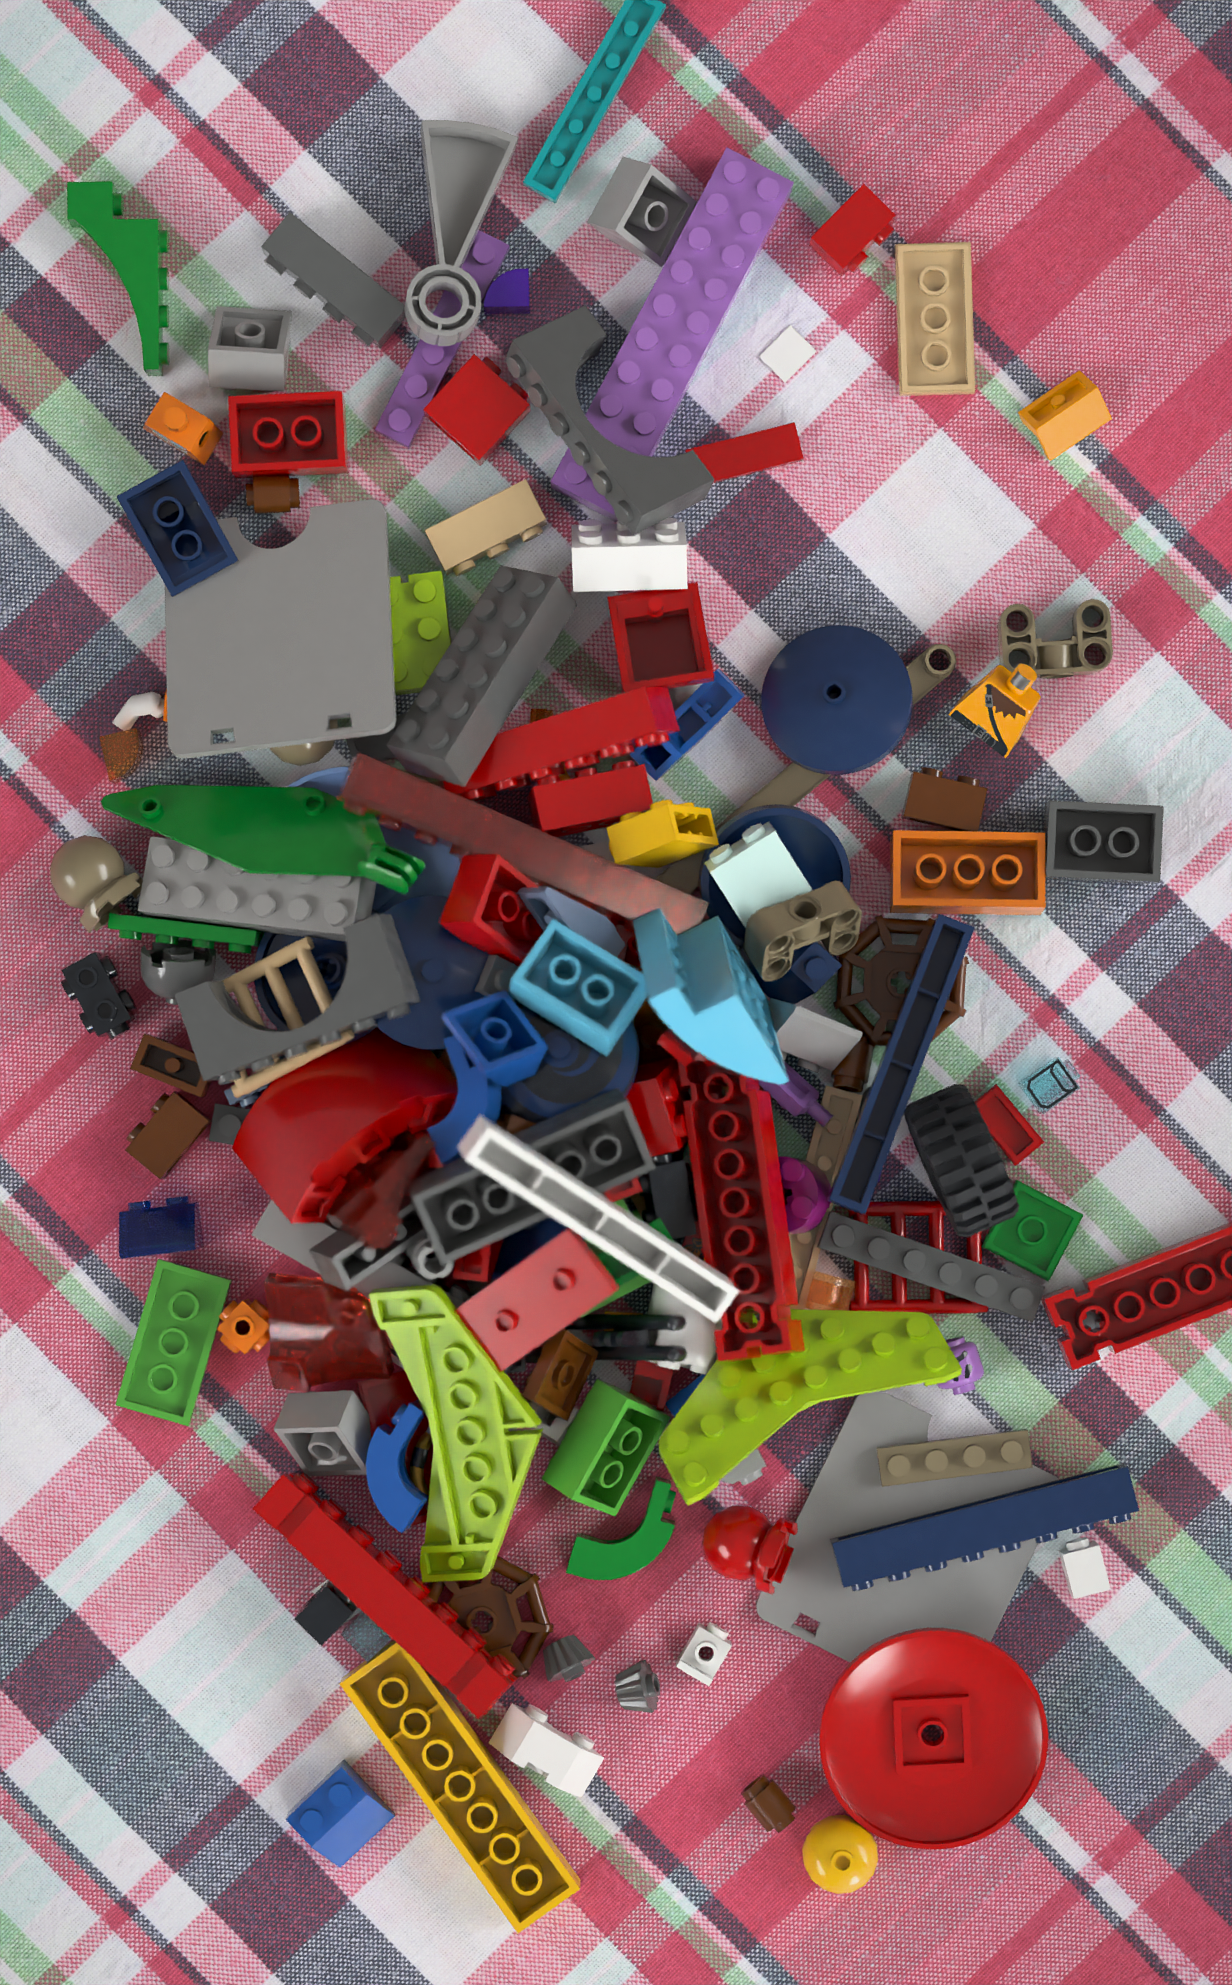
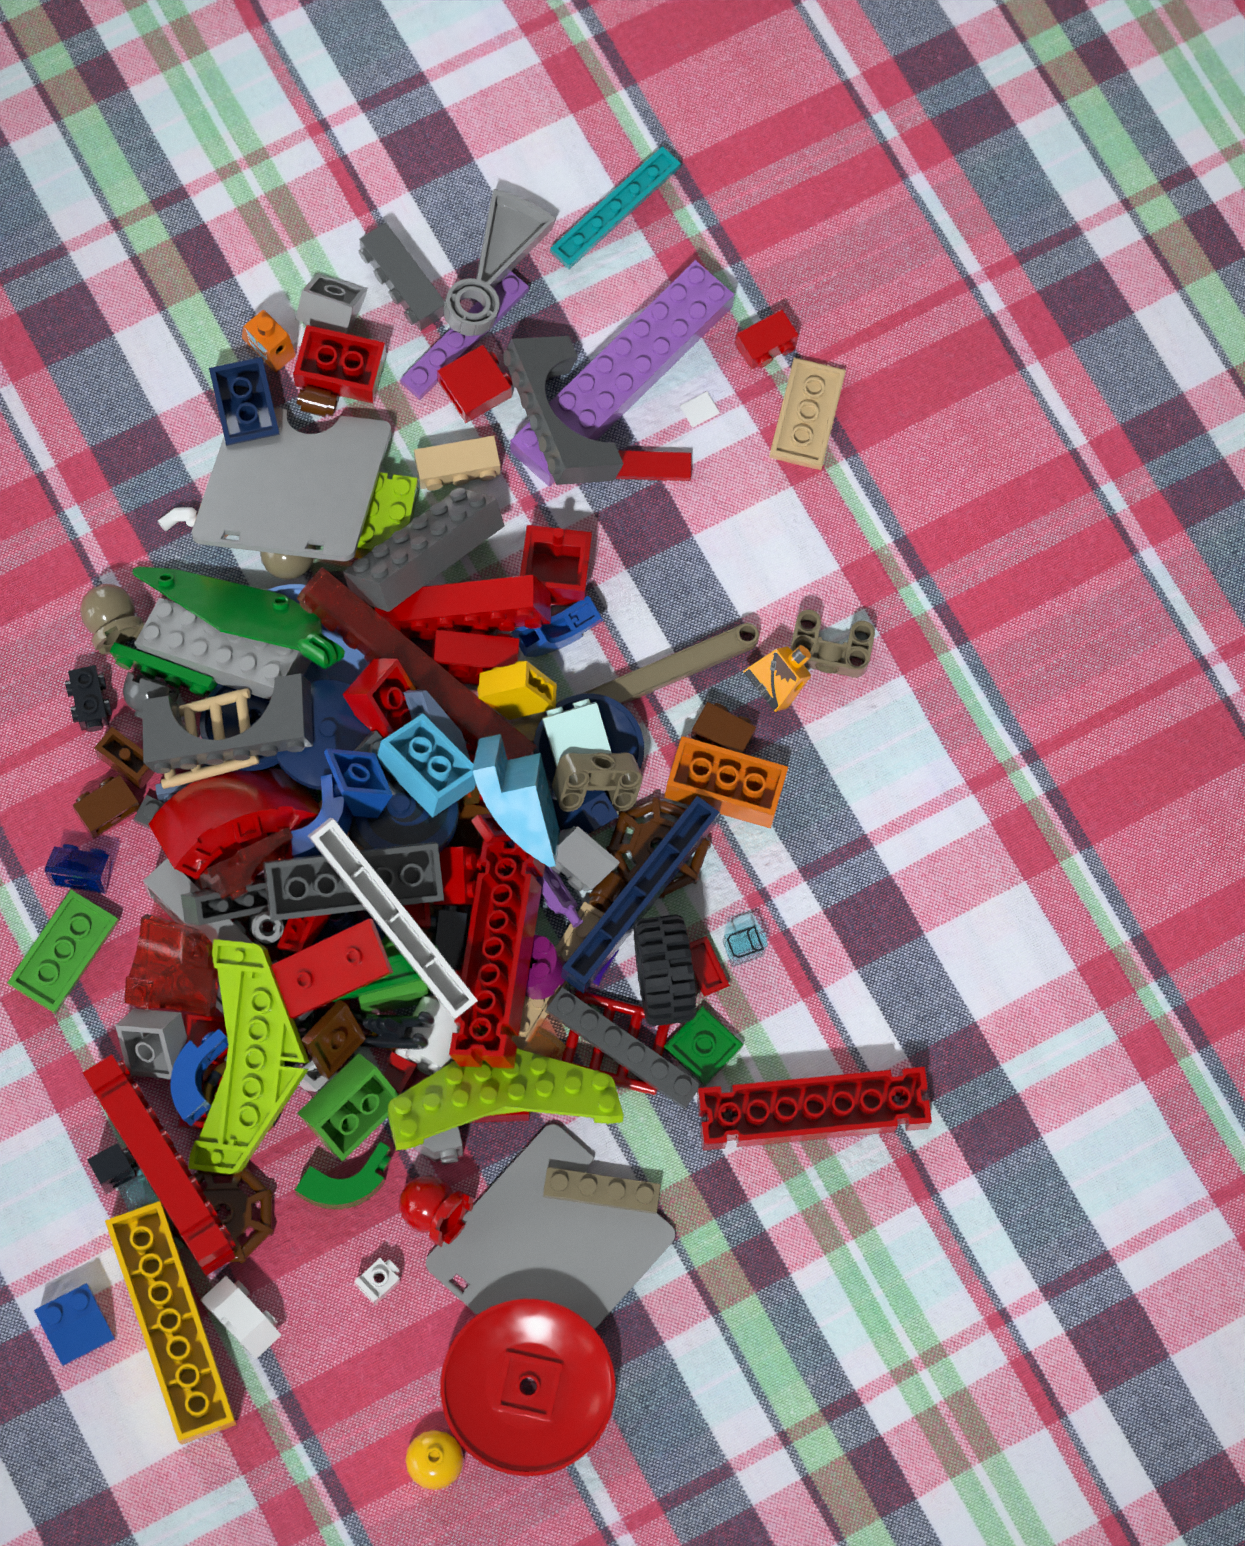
camera: 10 degrees right, 15 degrees down
(122, 753) = (158, 541): clear orange brick -> none
(136, 254) = (273, 224): green arch -> none
(258, 1318) = (121, 961): orange brick -> none
(509, 293) = (519, 316): dark purple brick -> none
(566, 1659) = (275, 1256): dark grey piece -> none
(615, 560) = (550, 503): white brick -> none
(638, 1688) = (321, 1291): dark grey piece -> none
(642, 211) = (625, 287): light grey slope -> none
(768, 1804) = (392, 1405): reddish brown brick -> none
(845, 731) = (667, 641): dark blue dish -> none
(971, 1365) = (626, 1131): medium lavender head -> none
(985, 1525) = (609, 1243): dark blue brick -> none
(1065, 414) = (881, 499): light orange panel -> none
(1084, 1568) = (674, 1296): white brick -> none
(1103, 842) = (827, 787): dark grey brick -> none

